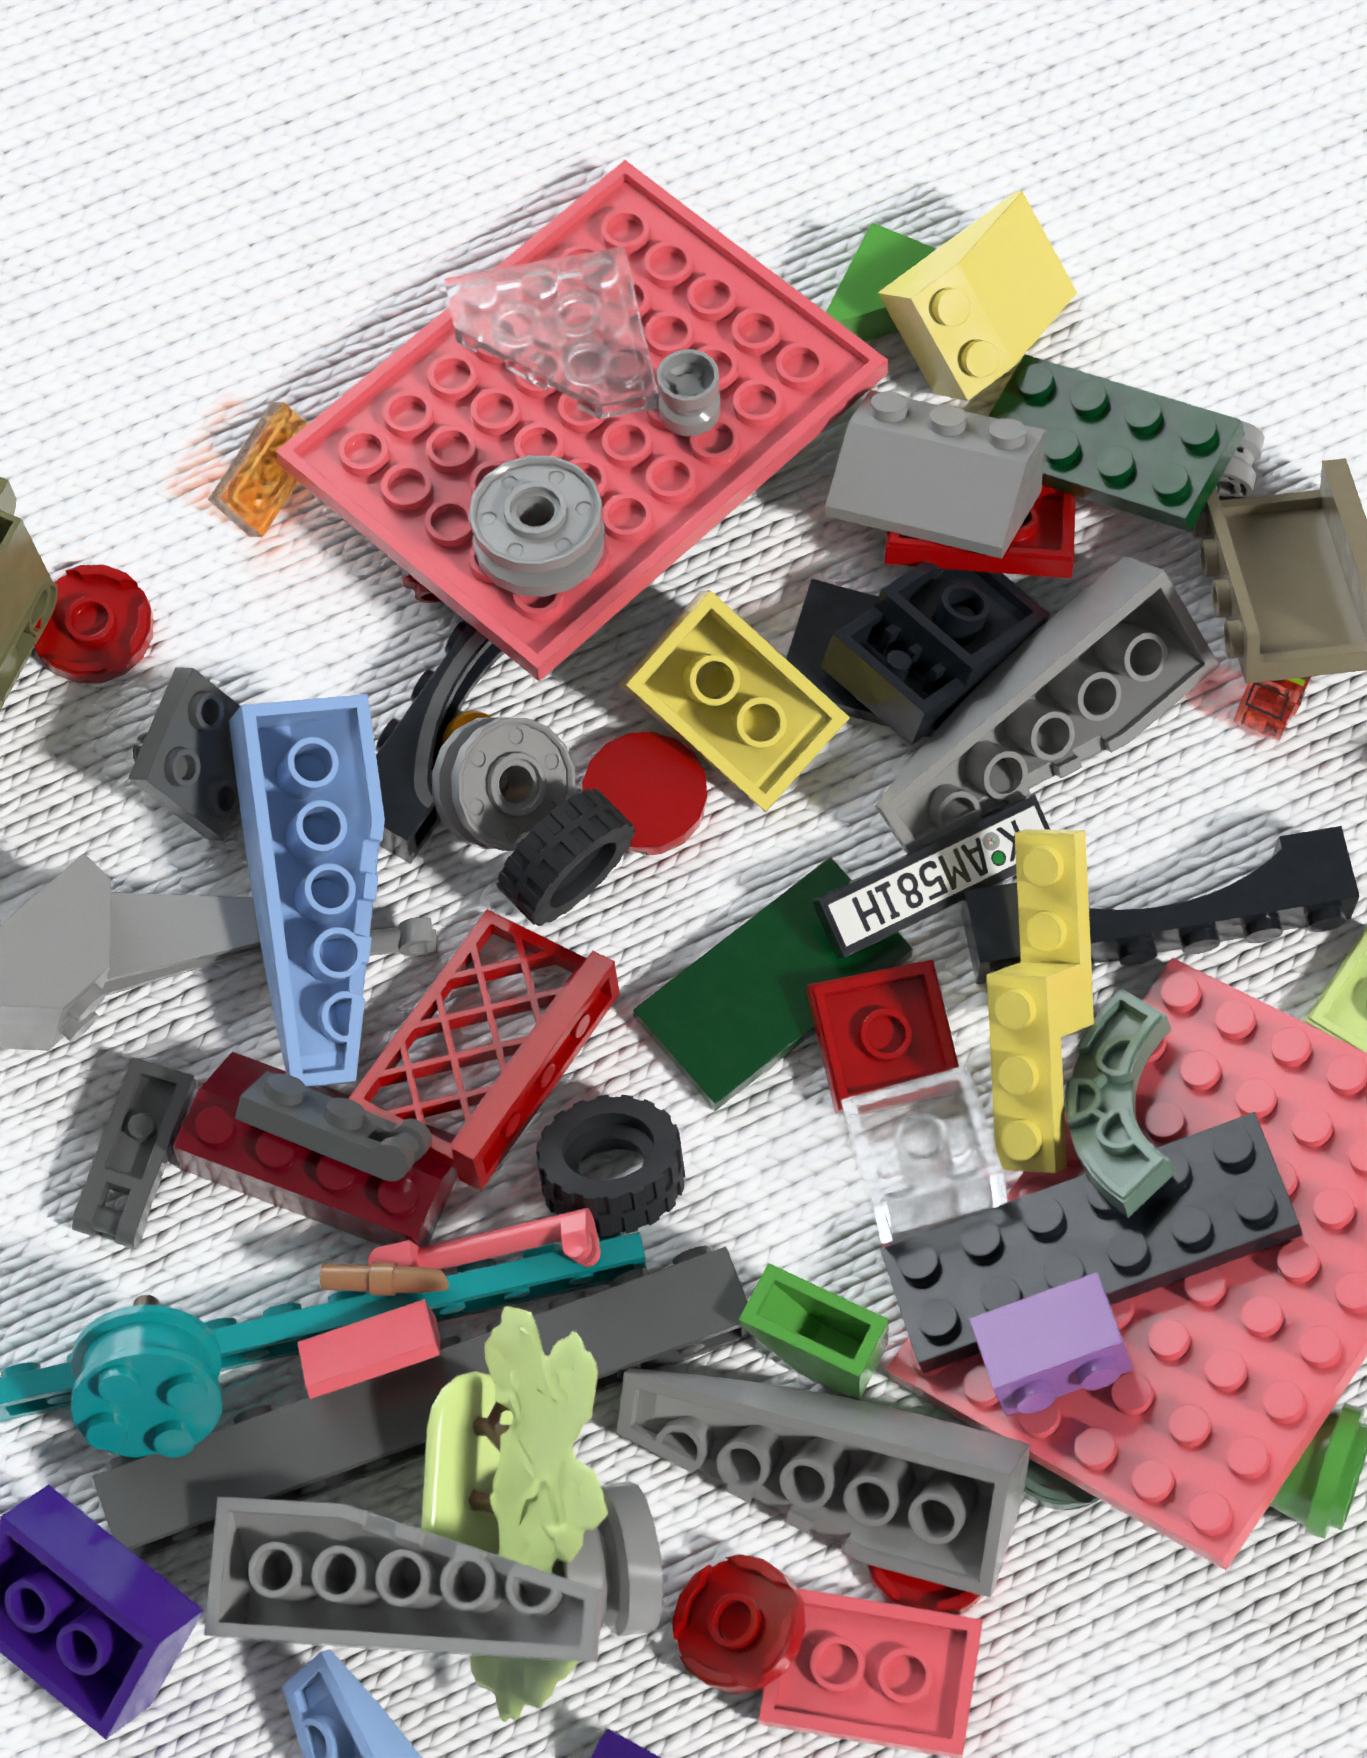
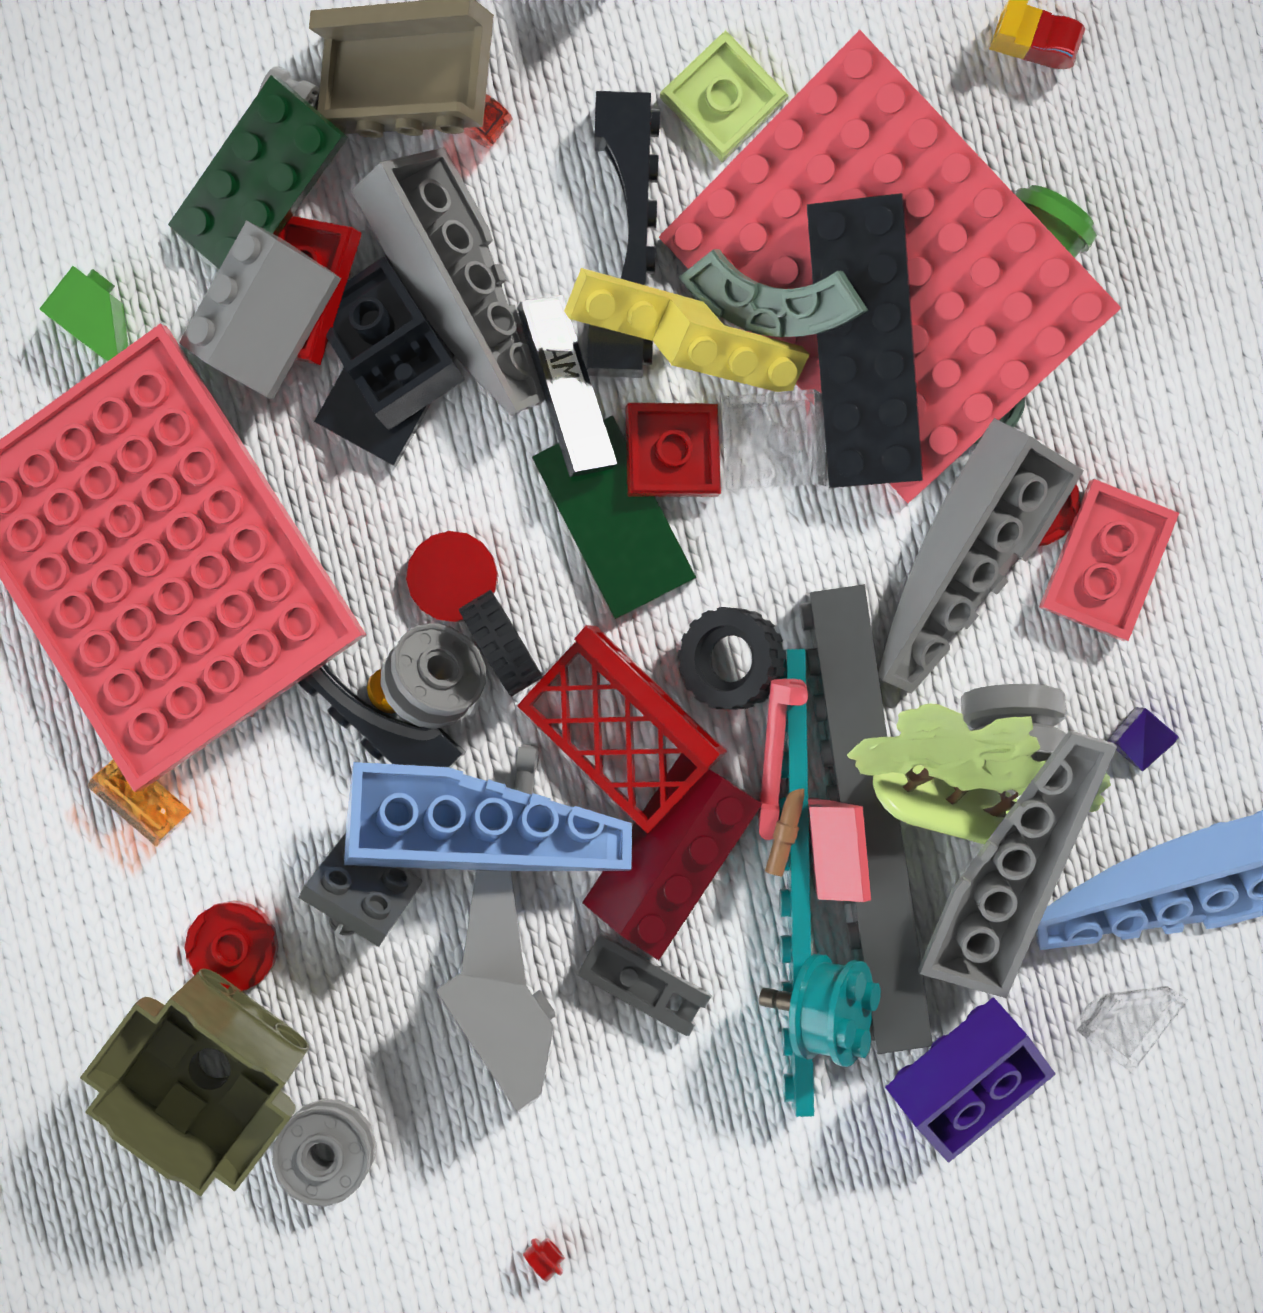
camera: 80 degrees left, 20 degrees up
(333, 1126) = (672, 846): dark grey plate -> none
(531, 494) = (220, 615): light grey wheel -> none
(562, 327) = (79, 558): clear plate -> none
(688, 392) = (150, 470): light grey wheel -> none
(733, 699) = (399, 499): light yellow slope -> none
(739, 1624) = (1062, 639): red tile -> none
(816, 1331) = (881, 544): bright green slope -> none
(980, 299) = (121, 244): light yellow slope -> none
(1051, 1345) = (946, 385): brick -> none

